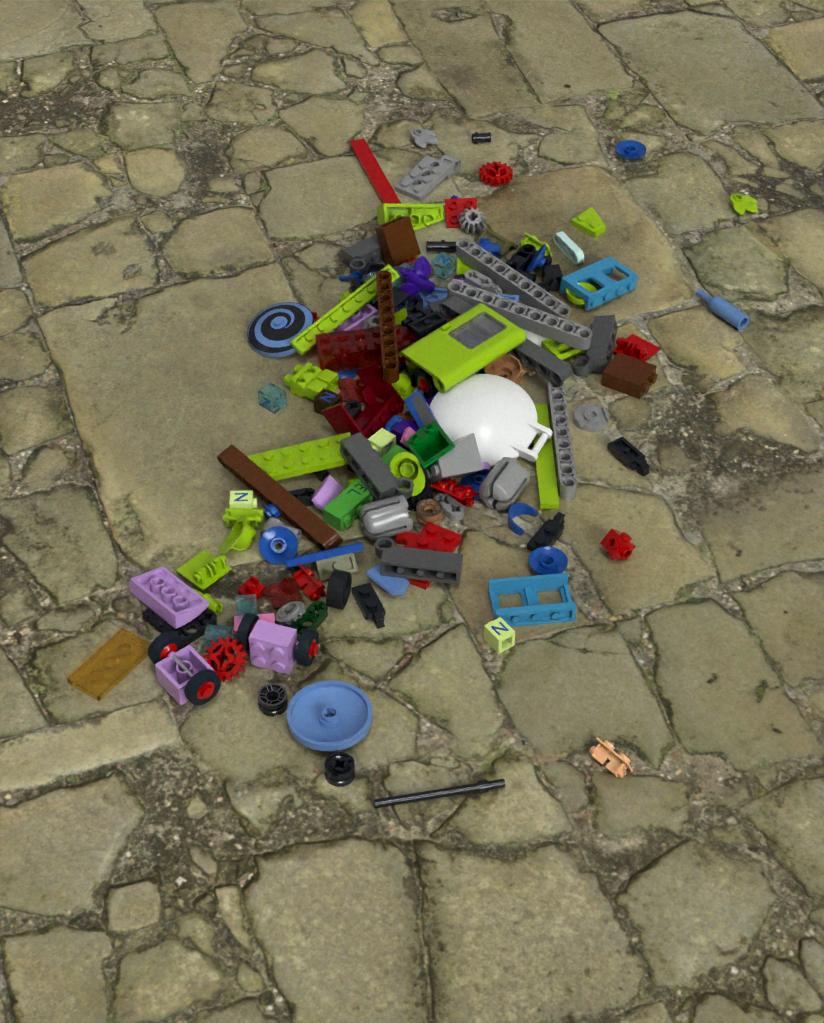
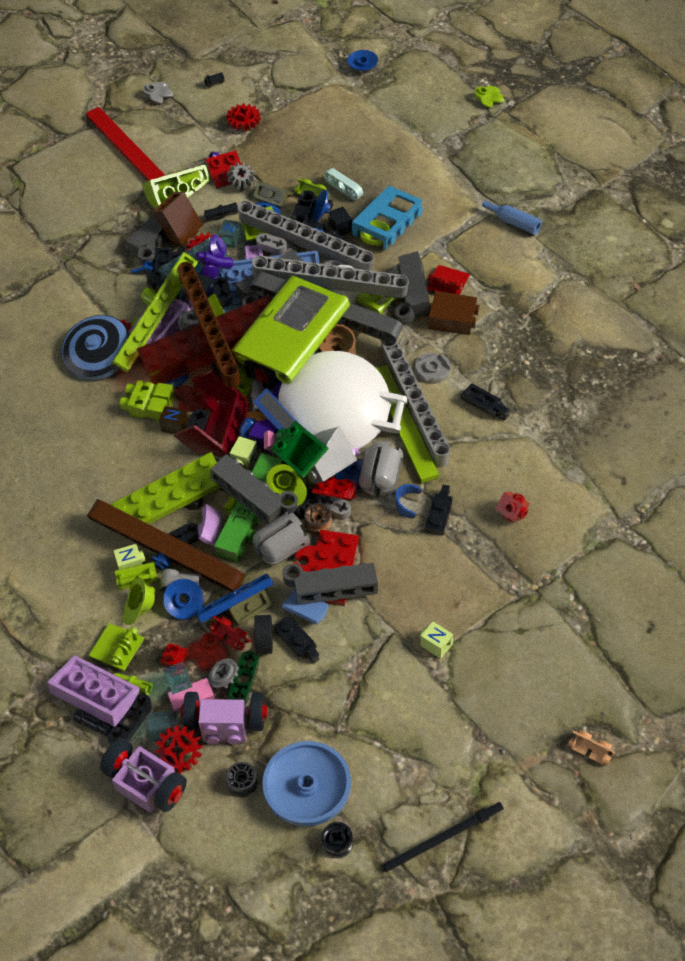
camera: 15 degrees left, 10 degrees up
(110, 664) = (61, 785): clear yellow tile -> none
(272, 398) = (115, 428): clear light blue brick -> none
(424, 322) = (246, 312): black plate -> none
(443, 168) = (193, 120): light grey hinge -> none
(488, 246) = (267, 202): blue dish -> none
(532, 612) = (457, 603): dark azure window -> none
(547, 561) = (452, 536): blue dish -> none
(589, 222) = (352, 150): lime wing -> none

